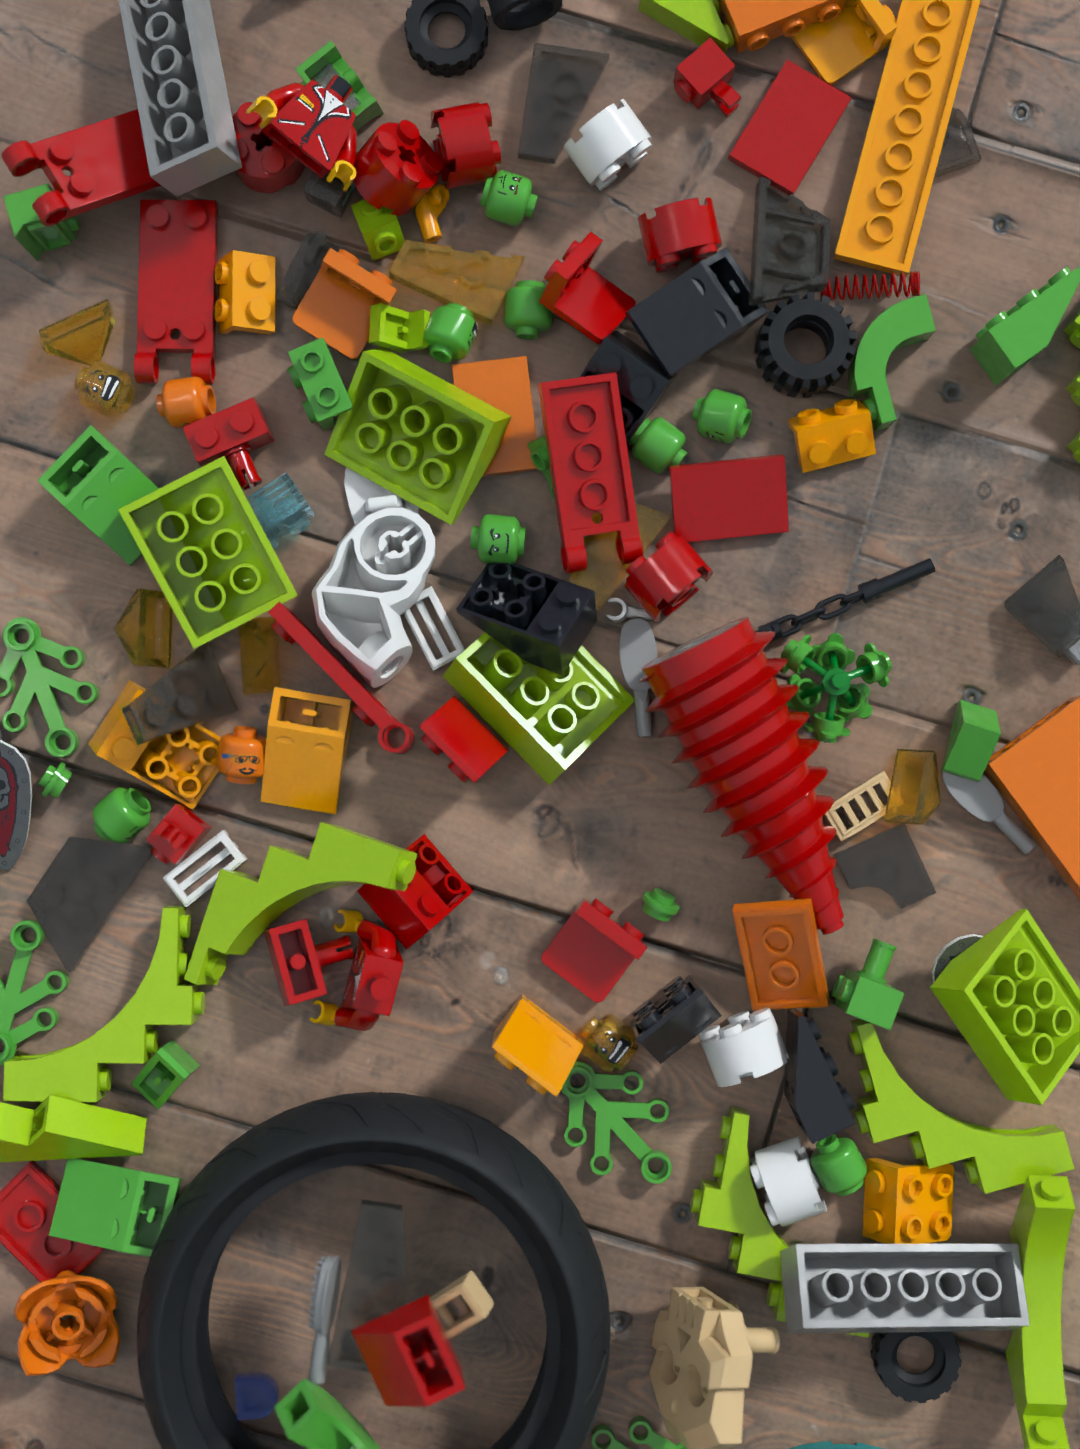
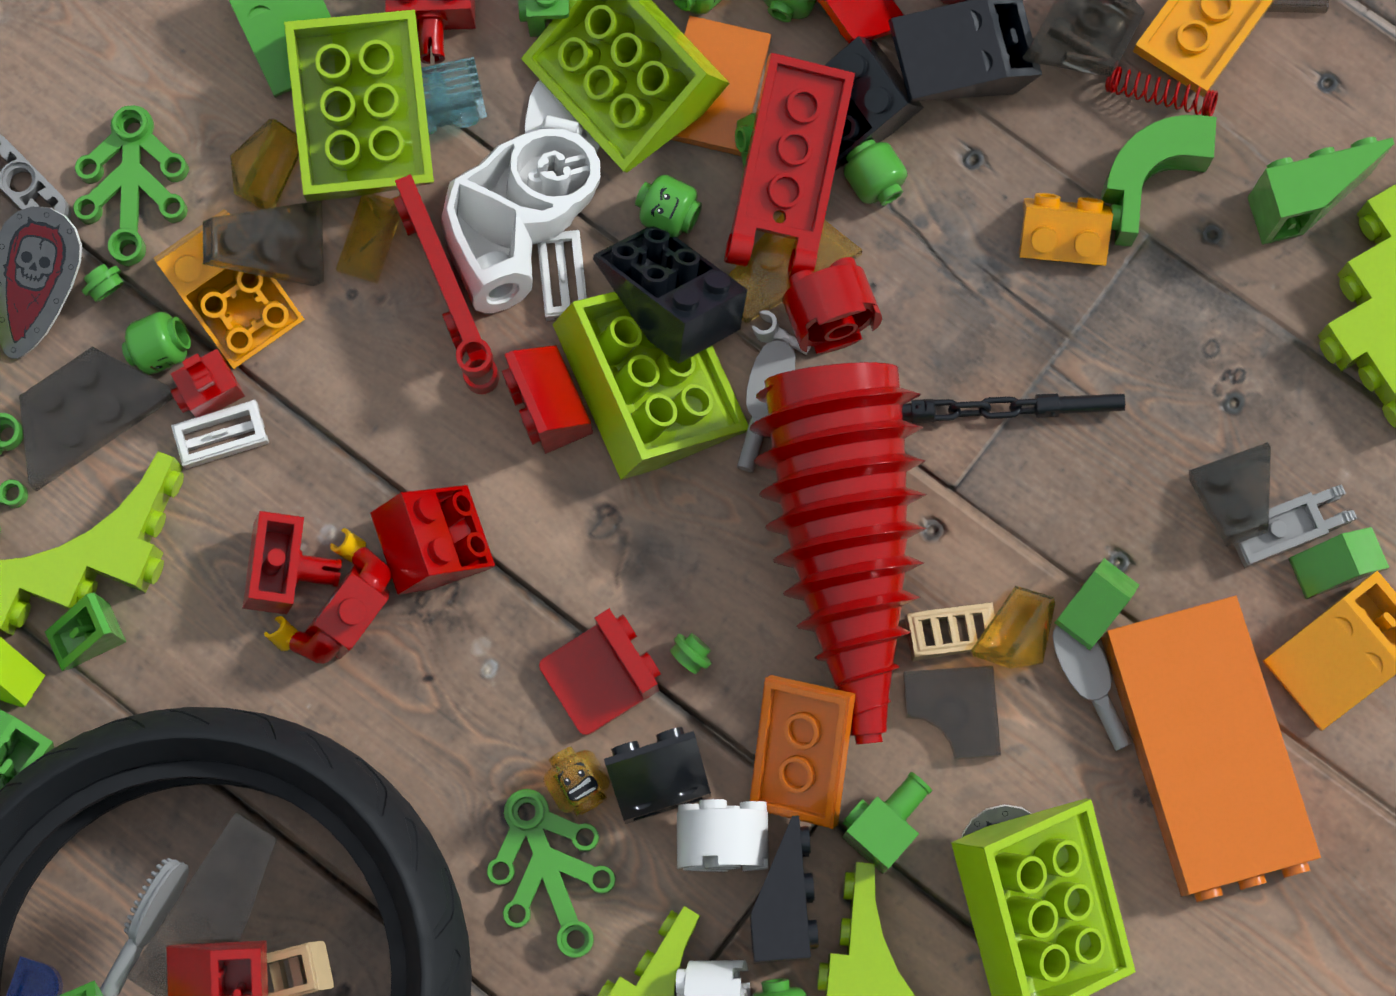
camera: 25 degrees right, 10 degrees down
(242, 755) = (309, 327): orange head -> none
(247, 905) = (301, 469): lime arch -> none
(306, 750) = (378, 346): light orange slope -> none
(536, 1046) = (496, 740): light orange slope -> none
(722, 416) = (954, 167): bright green head -> none
(729, 498) = (930, 253): red tile -> none
(814, 316) = (1076, 94): black tyre -> none
(835, 681) = (975, 463): bright green plant -> none

